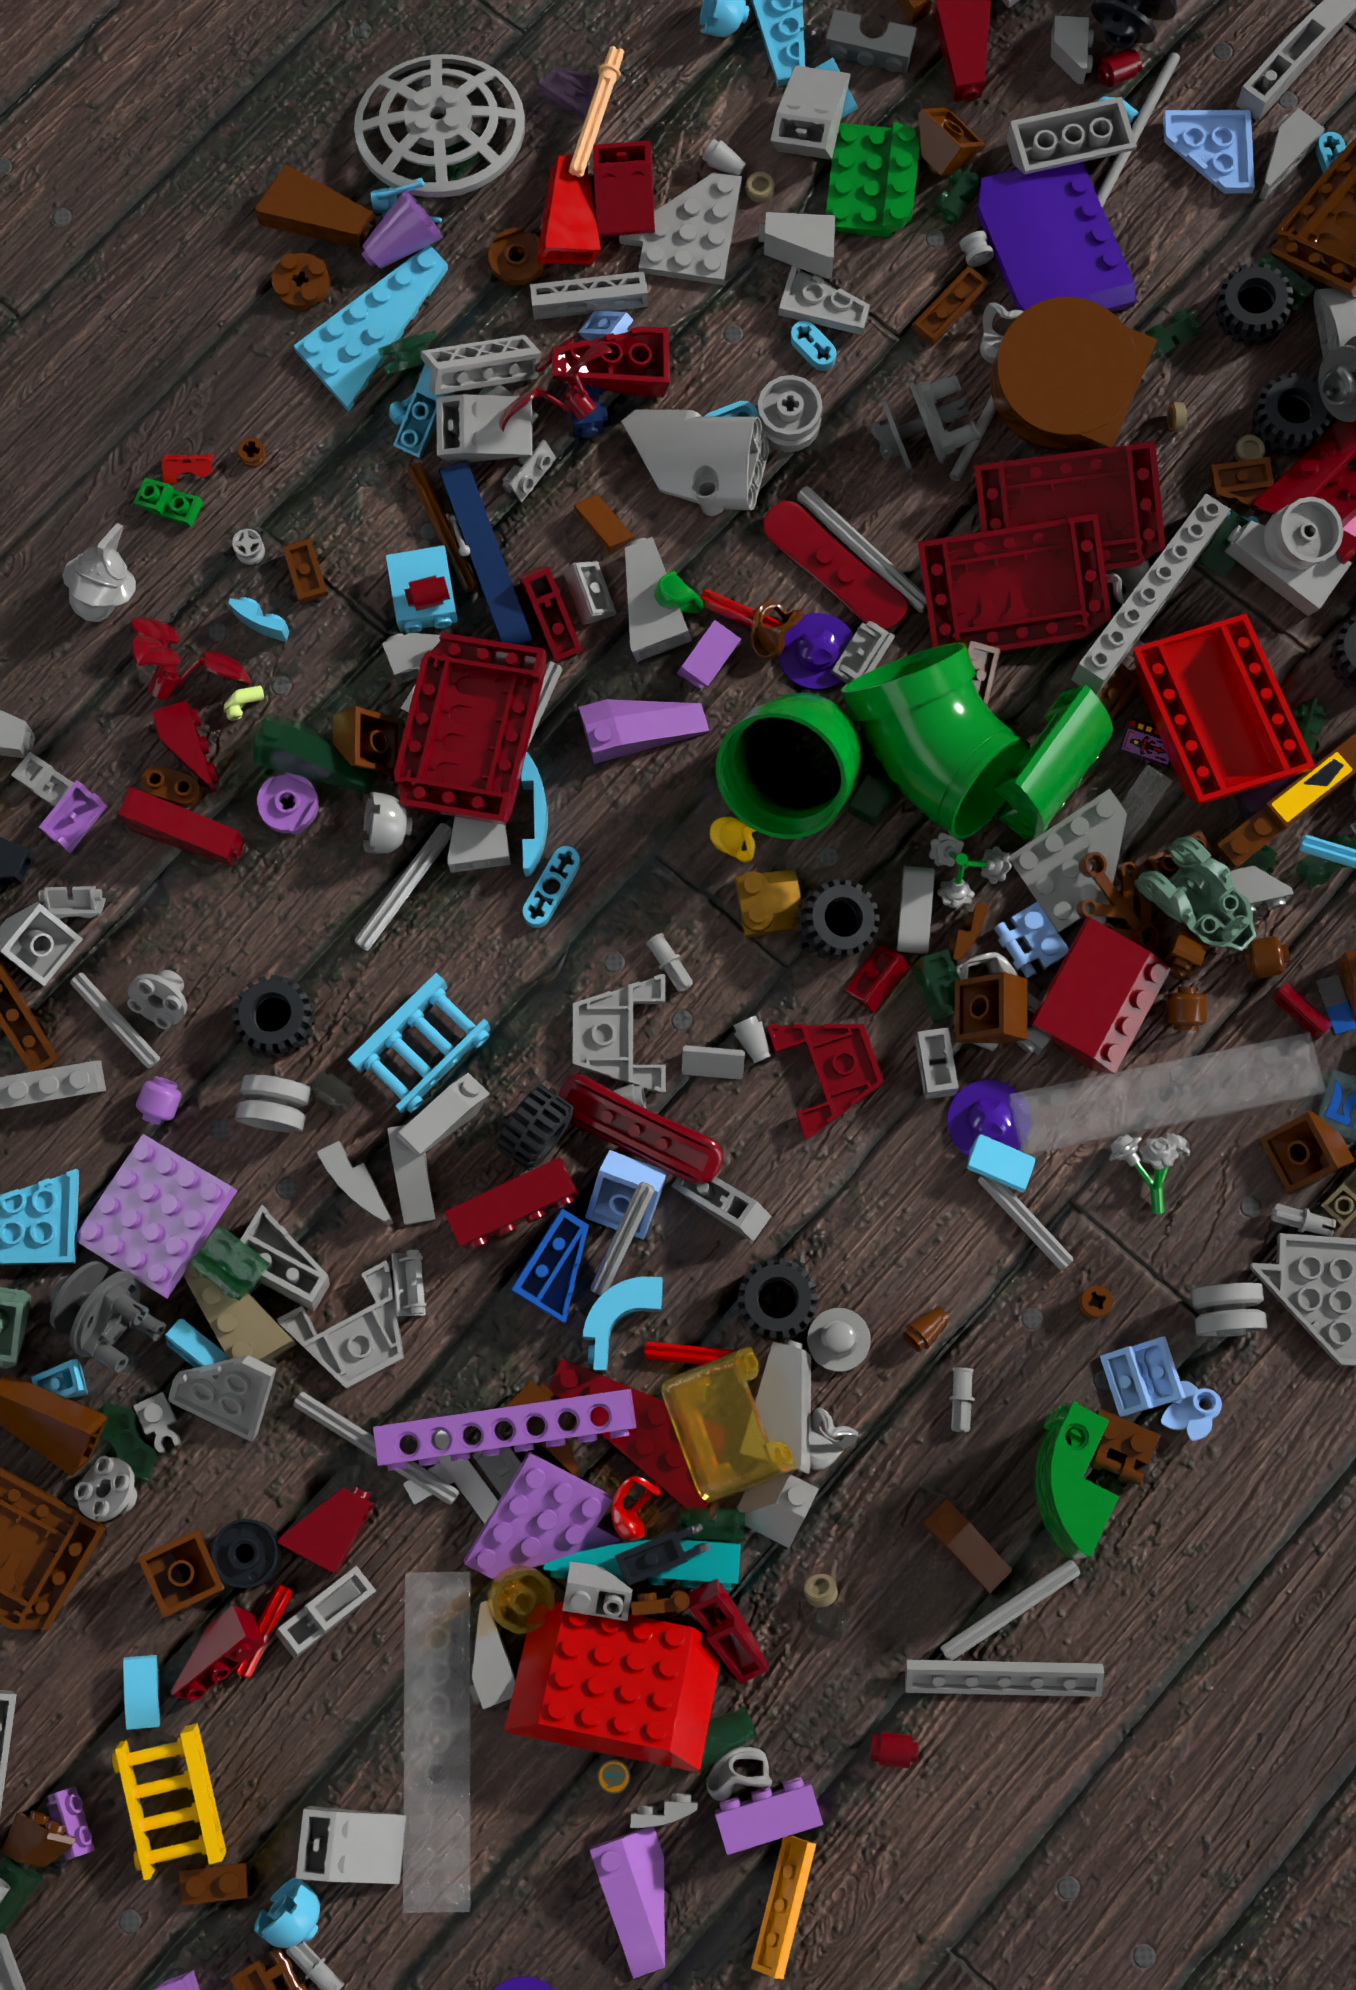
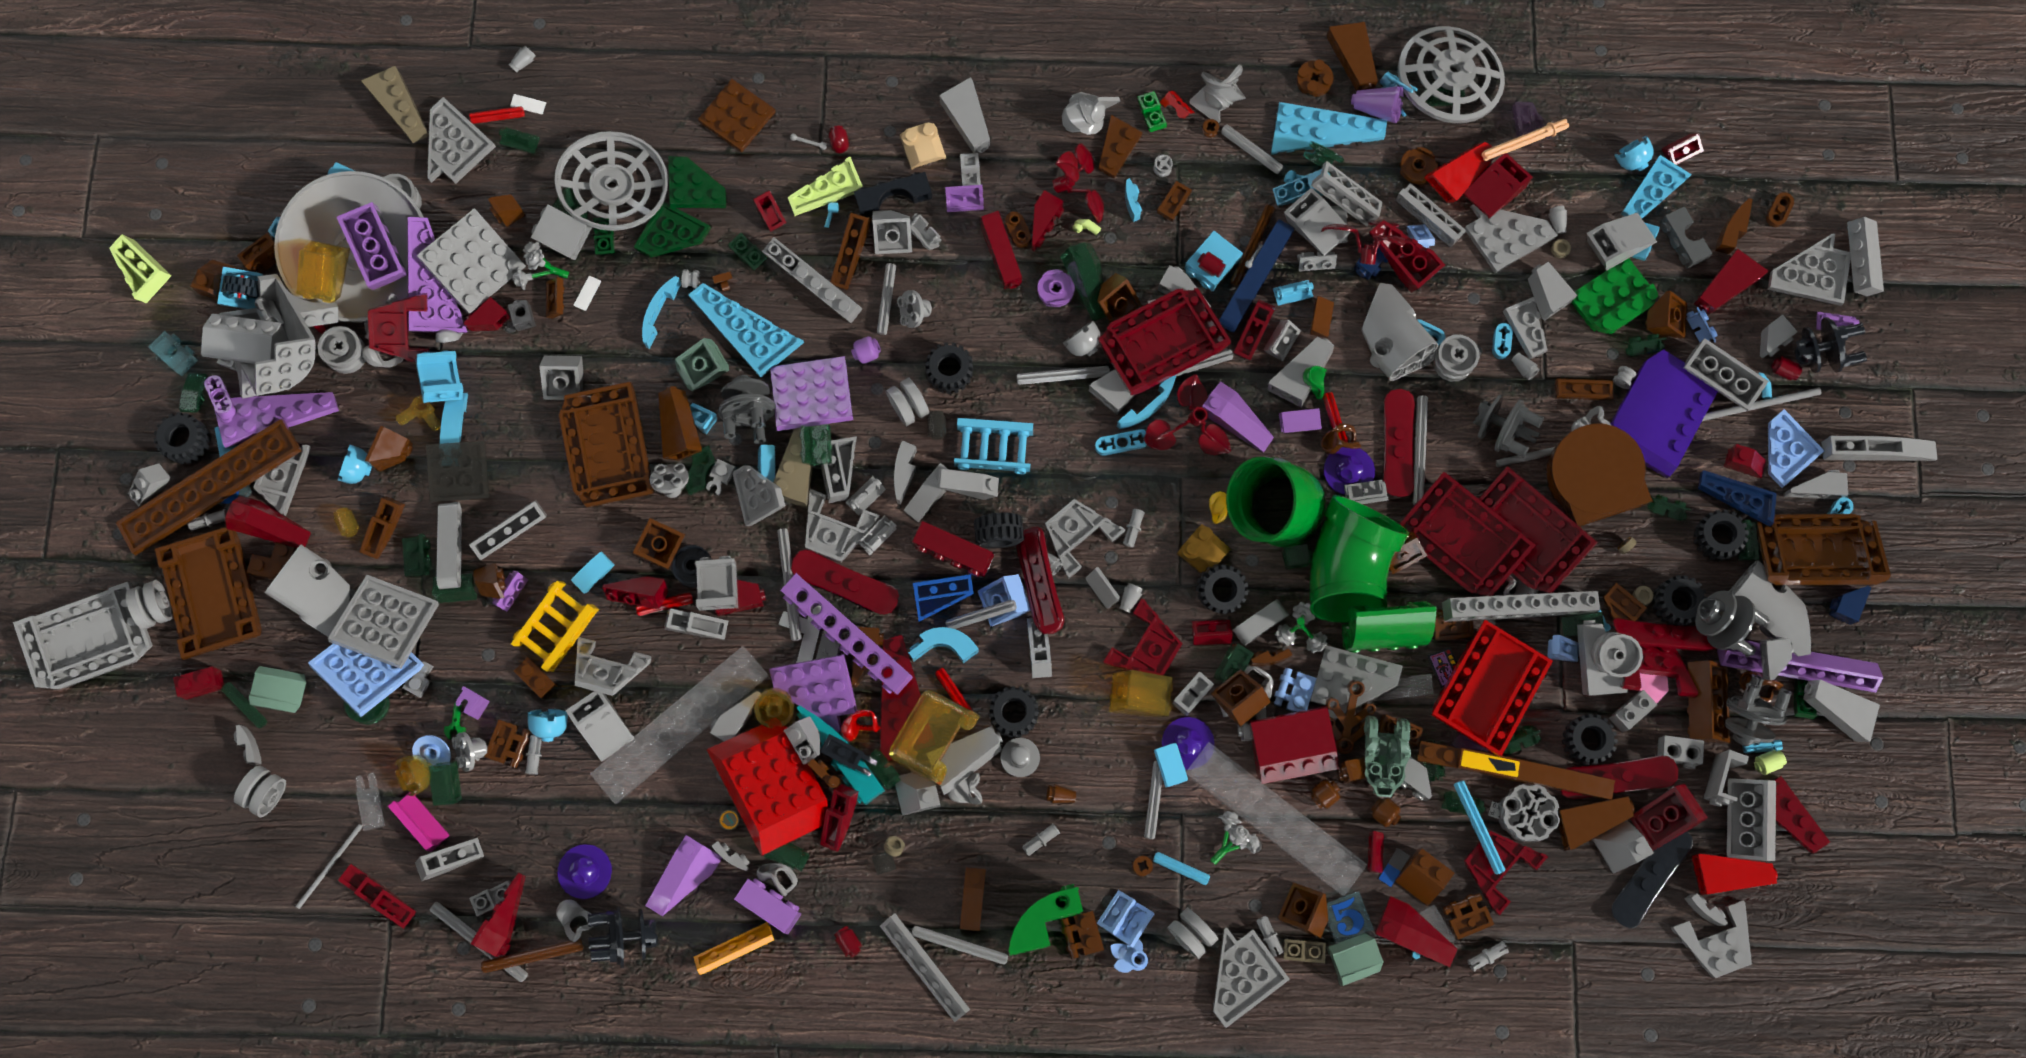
camera: 45 degrees right, 0 degrees up
(175, 578) = (1118, 145): none -> reddish brown wing
(219, 408) = (1217, 94): none -> light grey helmet
(291, 1787) = (603, 674): none -> light grey wing
(298, 1541) = (716, 583): none -> light grey panel
(321, 427) = (1251, 149): none -> light grey axle
(345, 1256) = (865, 495): none -> light grey hinge
(434, 1374) = (845, 582): none -> dark red piece
(543, 529) = (1293, 292): none -> medium azure hinge
(566, 752) = (1194, 395): none -> dark red plant
(867, 346) = (1526, 367): none -> light grey cone
(883, 1126) = (1141, 694): none -> clear yellow slope
(980, 110) = (1699, 320): none -> medium blue hinge
(1135, 1257) = (1181, 868): none -> medium azure axle
(1187, 204) = (1745, 461): none -> dark red slope
(1228, 242) = (1744, 497): none -> dark blue wing
(1237, 592) = (1563, 649): none -> light blue slope

